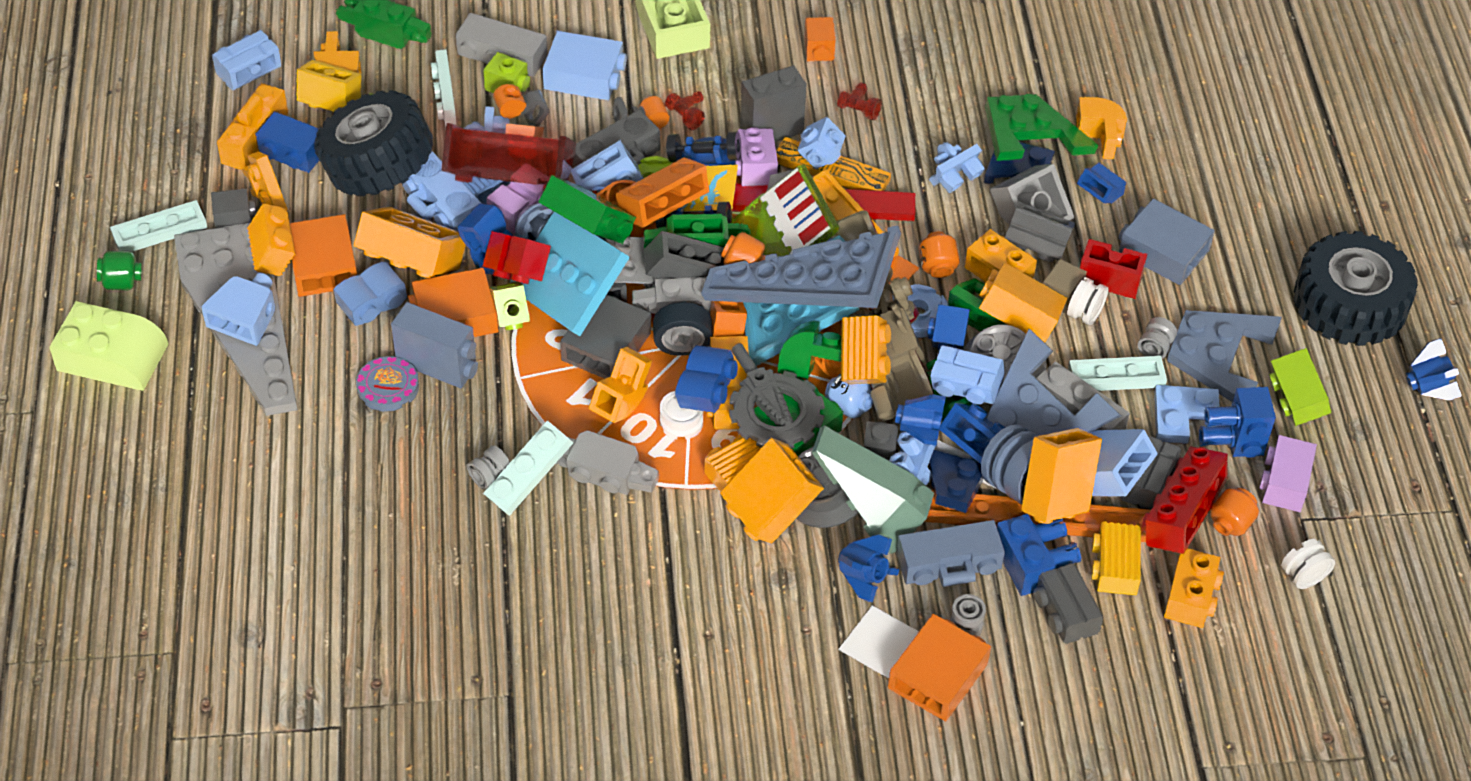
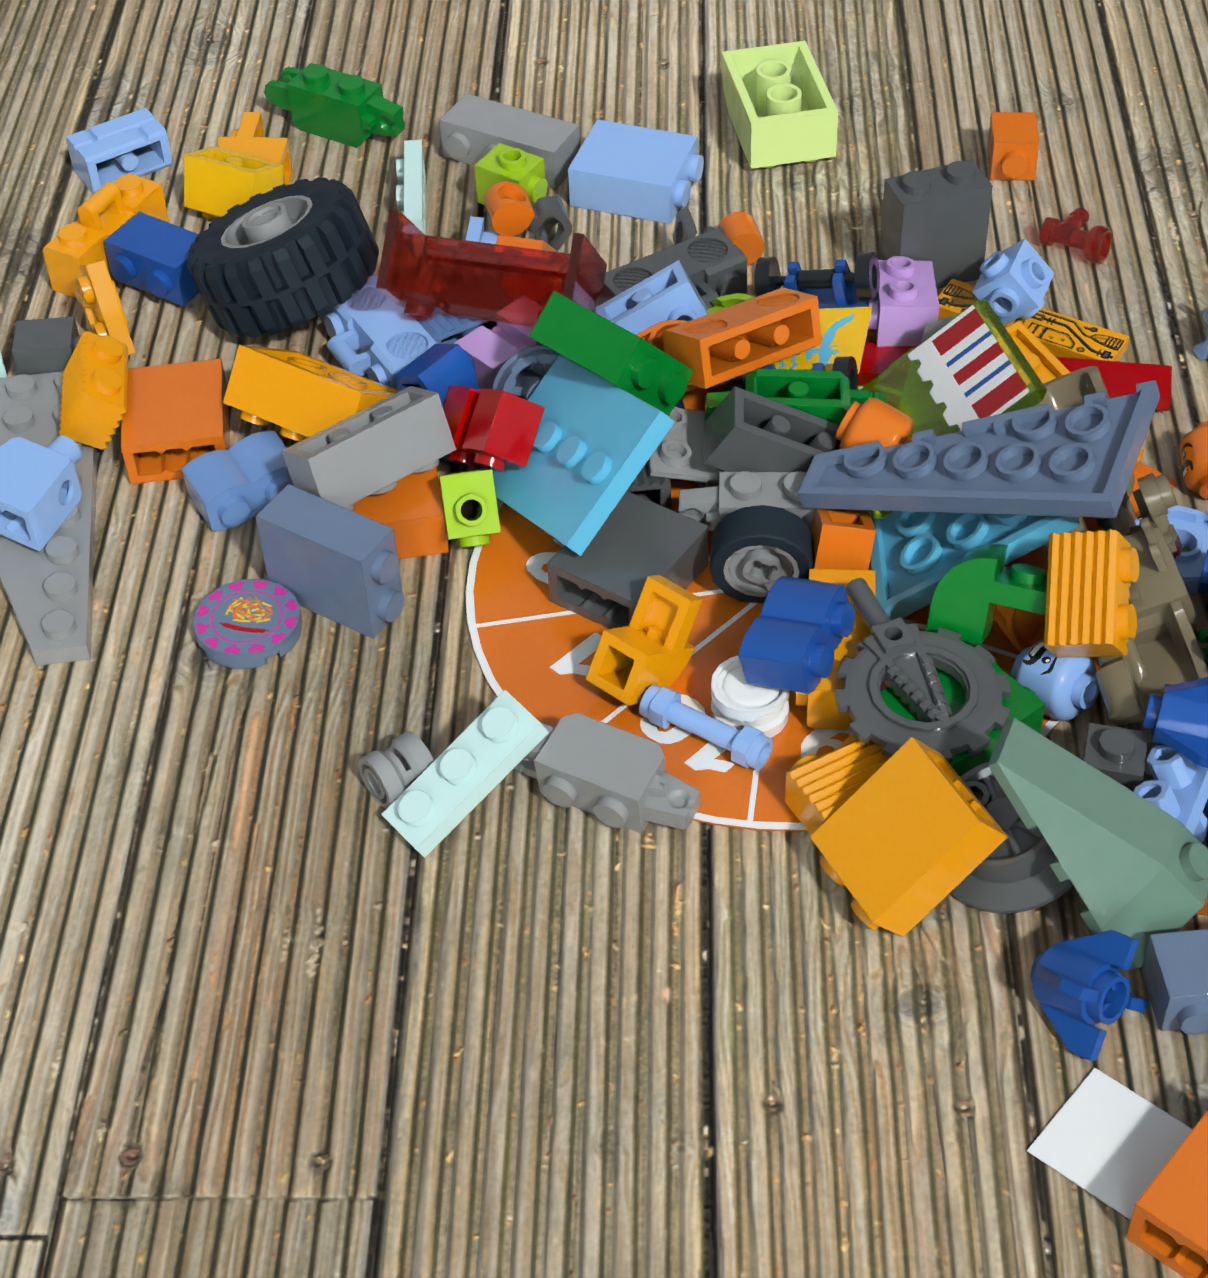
camera: 10 degrees right, 5 degrees down
(451, 275) = (372, 448): none -> light grey brick
(681, 442) = (747, 746): none -> light blue bar
(693, 116) = (795, 235): clear red piece -> none

